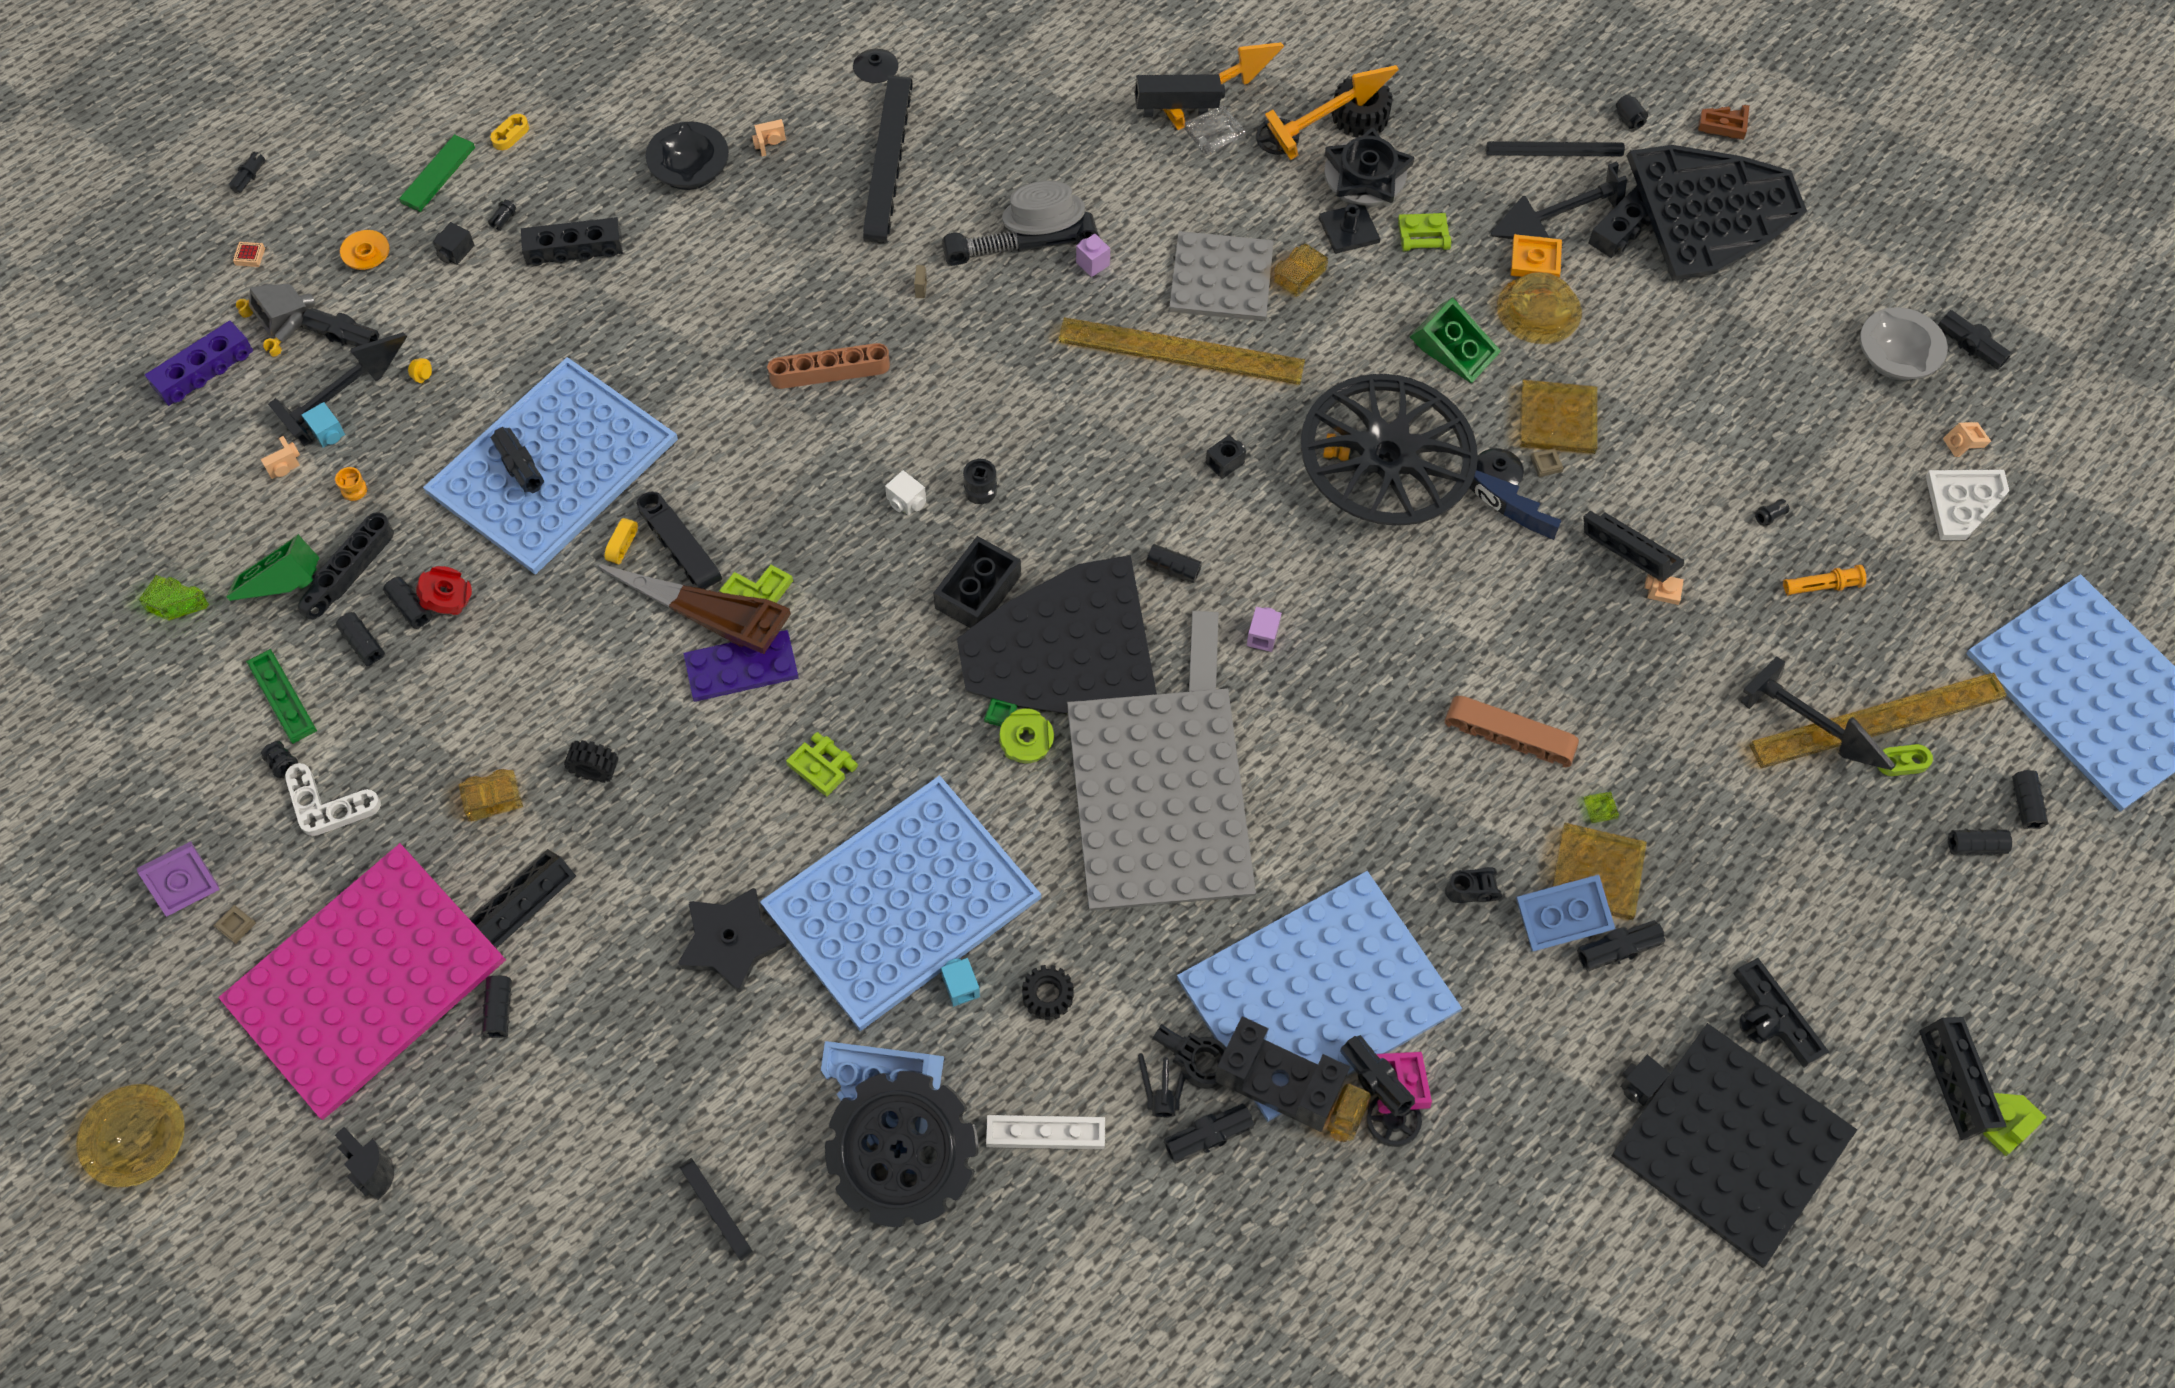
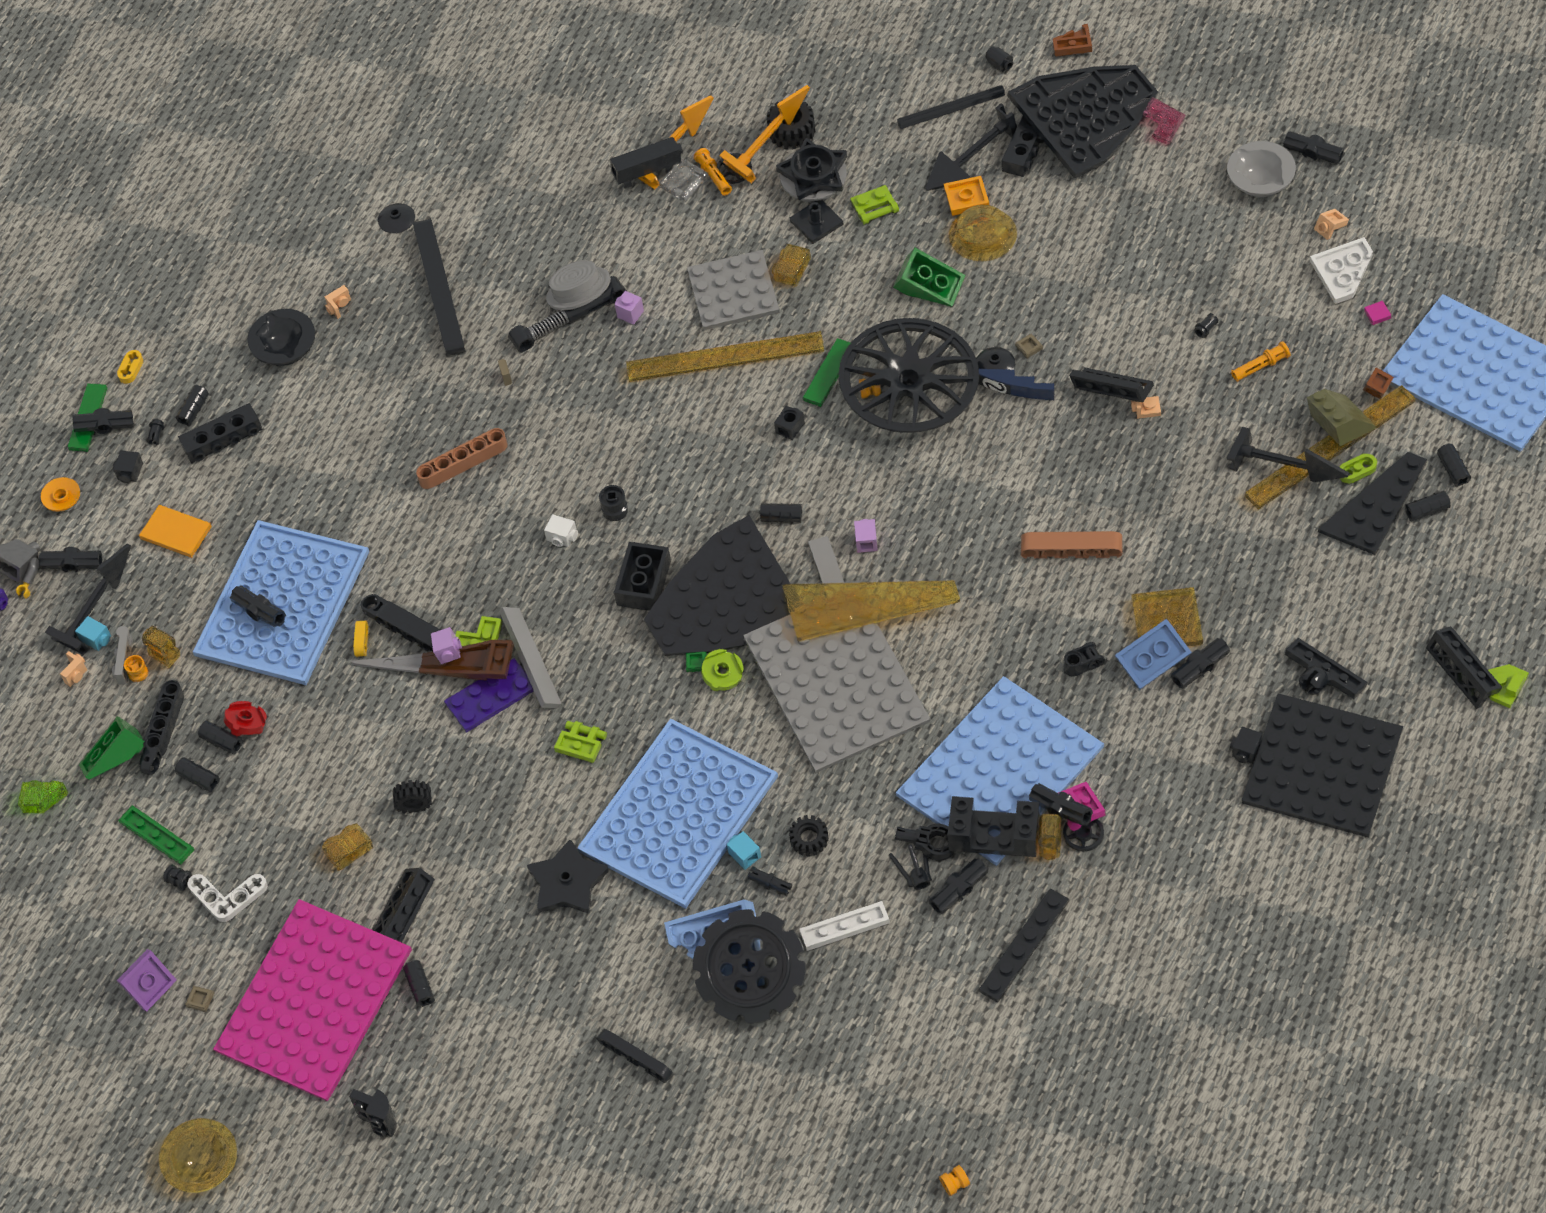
camera: 10 degrees left, 5 degrees down
(346, 457) = (121, 654): none -> light grey plate
(387, 467) = (160, 646): none -> clear yellow brick
(420, 370) = (147, 568): yellow plate -> none
(448, 182) = (103, 421): none -> black piece
(471, 337) = (175, 531): none -> light orange tile
(556, 198) = (192, 405): none -> black axle
(710, 586) = (446, 645): none -> lavender brick
(806, 637) = (530, 657): none -> light grey tile
(976, 1035) = (769, 881): none -> black pin
(1200, 710) = (843, 606): none -> clear yellow wing
(1250, 124) = (710, 166): none -> light orange pin
(1262, 1247) = (1023, 945): none -> black plate
(1291, 414) = (826, 375): none -> green tile
(1558, 416) = (1025, 309): clear yellow plate -> none
(1601, 807) = (1154, 575): clear neon green tile -> none
(1807, 245) = (1167, 117): none -> clear pink plate
(1902, 686) = (1338, 416): none -> olive slope
(1906, 823) = (1372, 512): none -> black wing
(1966, 660) = (1378, 383): none -> dark orange brick
(1990, 569) = (1377, 312): none -> dark pink tile

